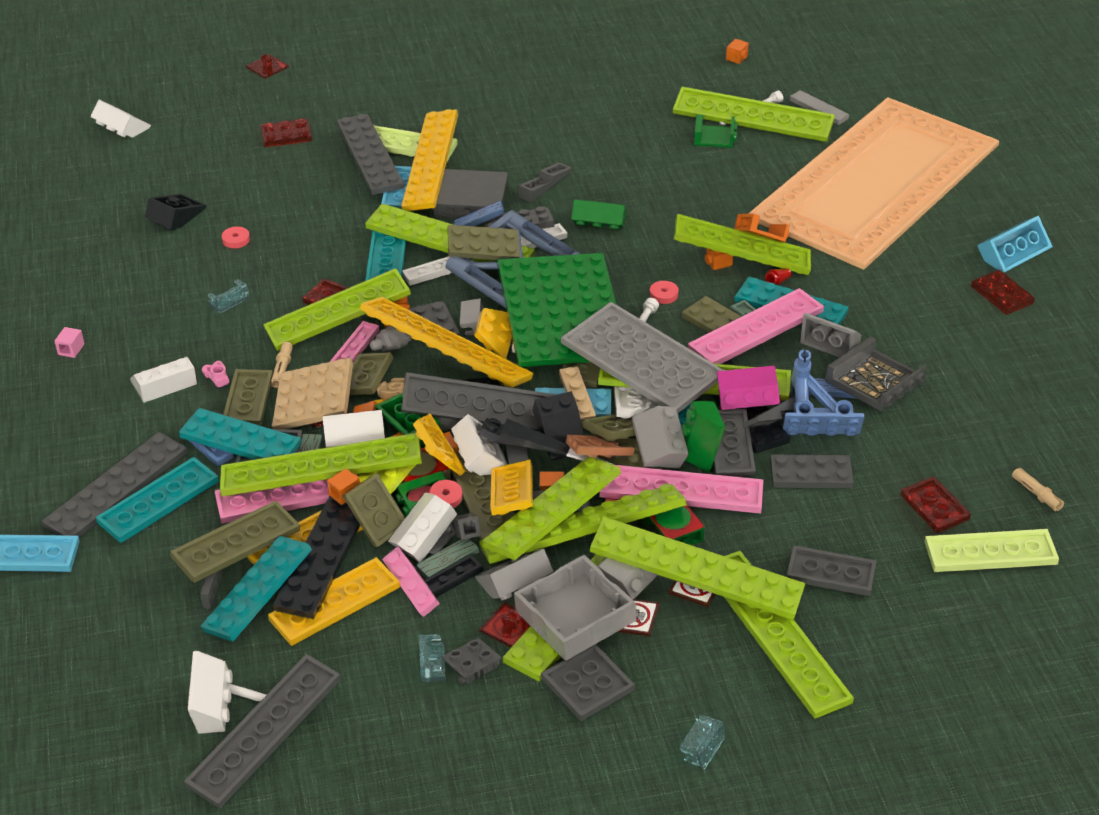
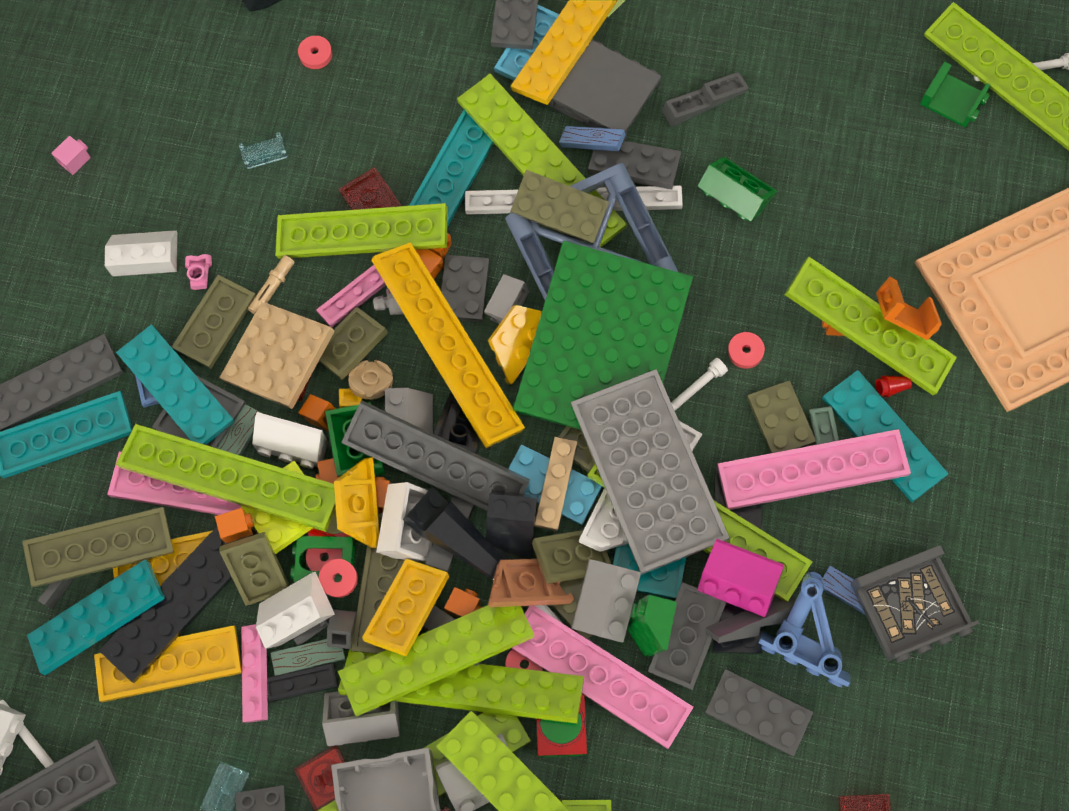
camera: 30 degrees right, 30 degrees up
(828, 336) = (896, 518): light grey slope -> none

